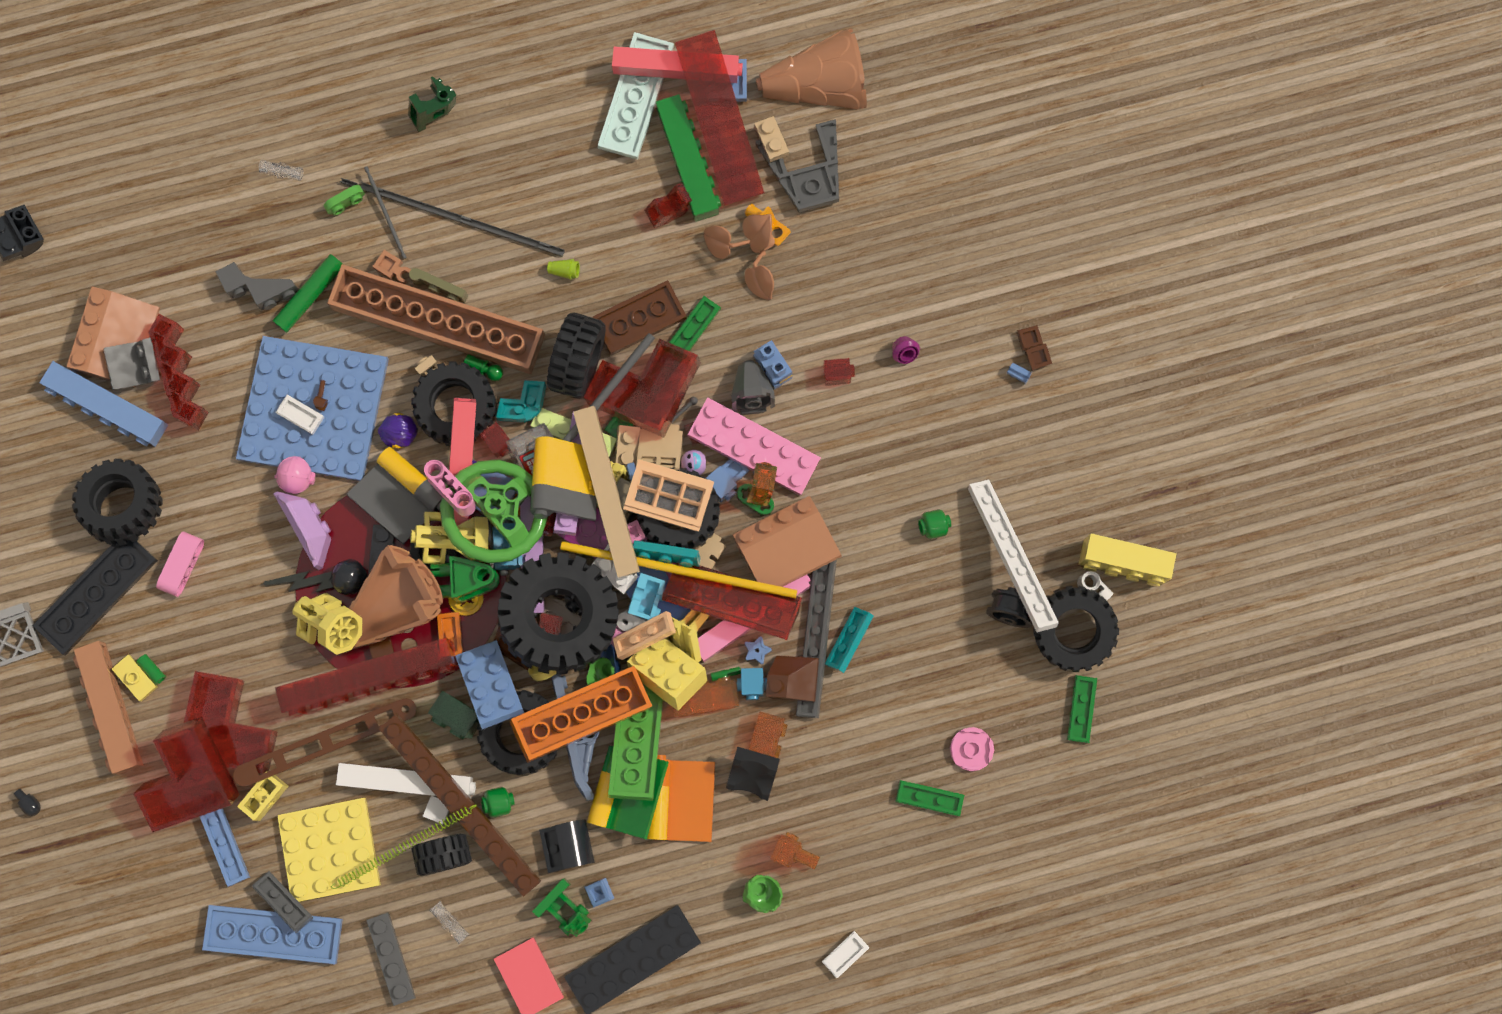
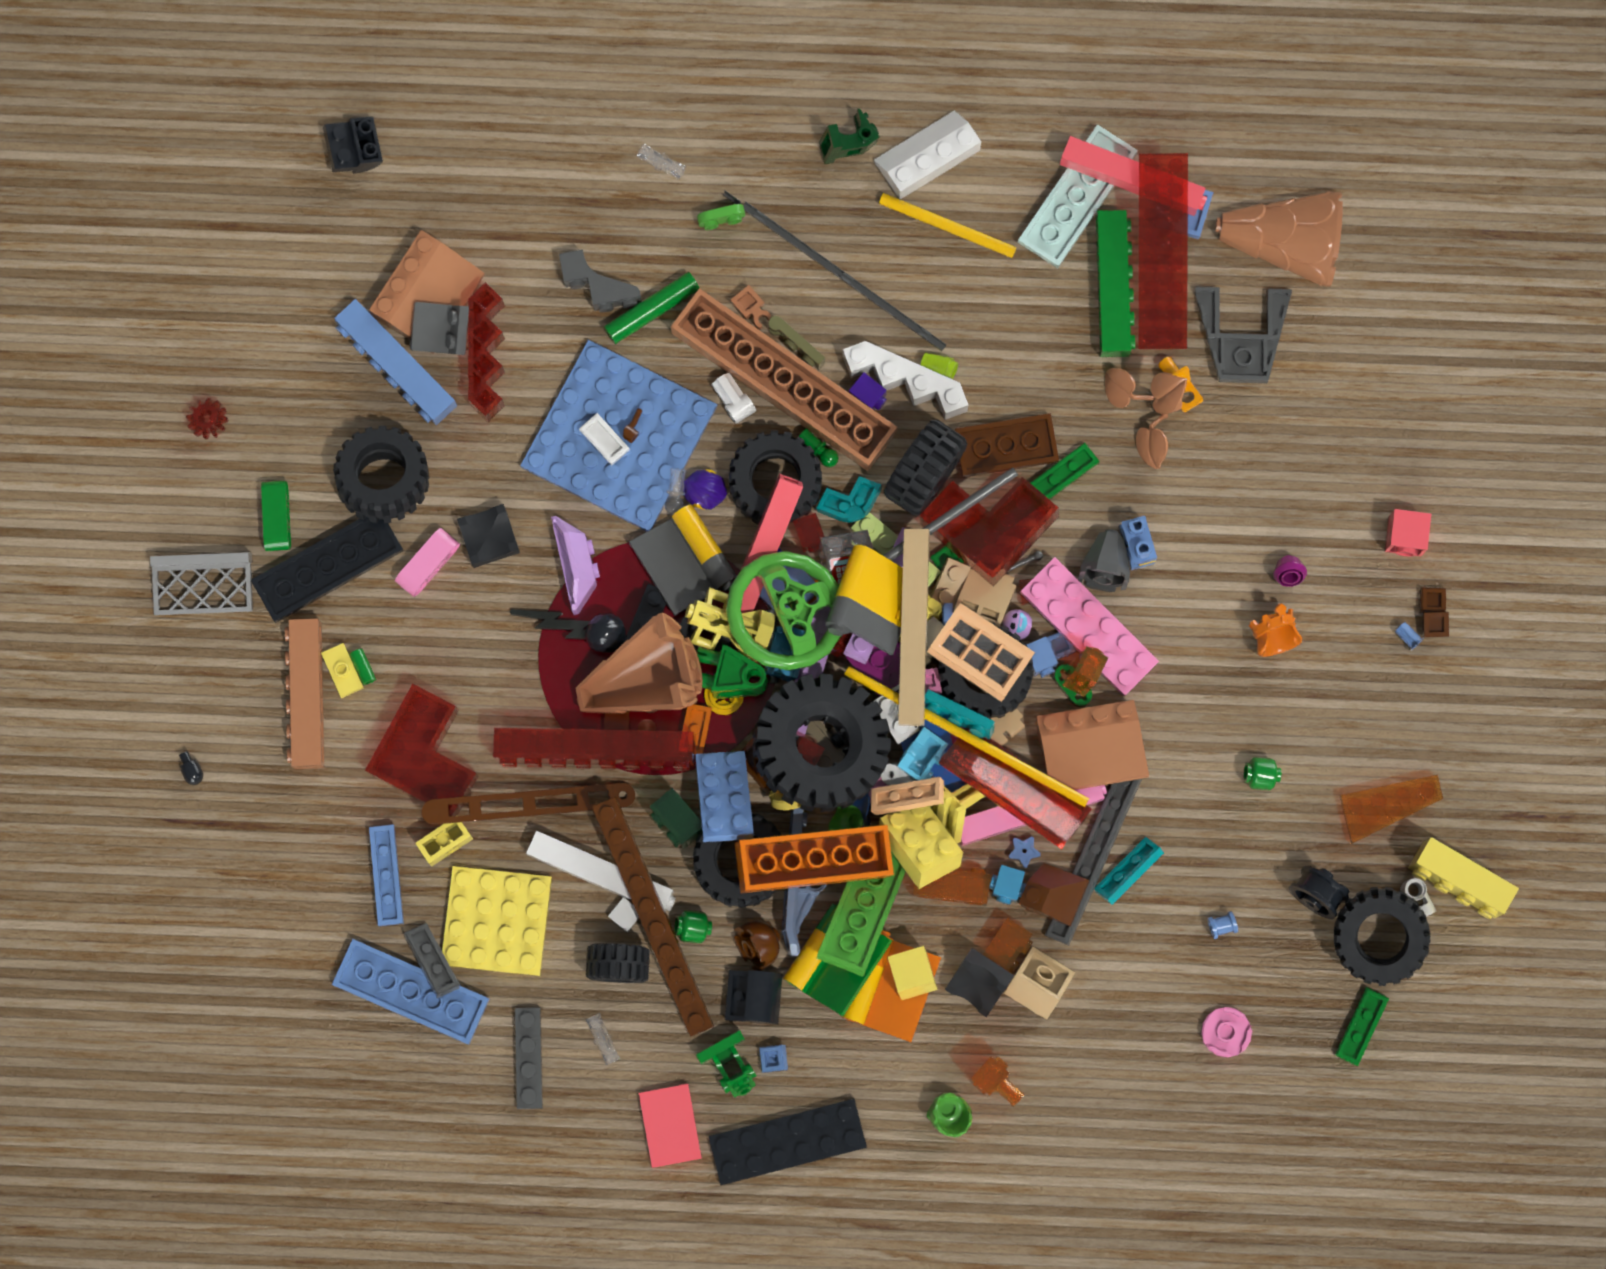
camera: 20 degrees right, 0 degrees up
(39, 564) = (276, 515): none -> green beam
(196, 778) = (381, 802): clear red piece -> none
(225, 526) = (488, 536): none -> black brick
(294, 475) = (578, 503): bright pink cap -> none
(334, 623) = (578, 683): light yellow piece -> none
(373, 439) = (676, 489): none -> clear pin
(382, 856) = (586, 942): lime piece -> none
(385, 212) = (761, 242): dark grey piece -> none
(402, 350) = (736, 403): none -> white piece
(425, 364) = (757, 426): tan plate -> none
(453, 499) = (736, 564): bright pink beam -> none
(502, 98) = (928, 154): none -> white slope
(511, 308) = (869, 392): none -> dark purple brick
(528, 284) = (896, 371): none -> white brick
(534, 151) = (947, 225): none -> yellow piece
(556, 799) = (757, 943): none -> reddish brown cylinder
(669, 207) = (1076, 333): clear red brick -> none
(694, 783) = (912, 973): none -> light yellow head
(725, 673) = (994, 866): green pin -> none
(771, 139) = (1213, 291): tan plate -> none
(803, 757) = (1039, 983): none -> tan slope
(838, 371) = (1207, 572): clear red brick -> none
(845, 954) = (1019, 1209): white tile -> none
(909, 403) = (1276, 632): none -> orange hair
(929, 798) = (1163, 1070): green tile -> none
(941, 660) = (1222, 925): none -> medium blue bush
(992, 288) = (1408, 533): none -> coral head
(1013, 556) = (1337, 834): white plate -> none
(1046, 517) = (1385, 805): none -> clear orange wing

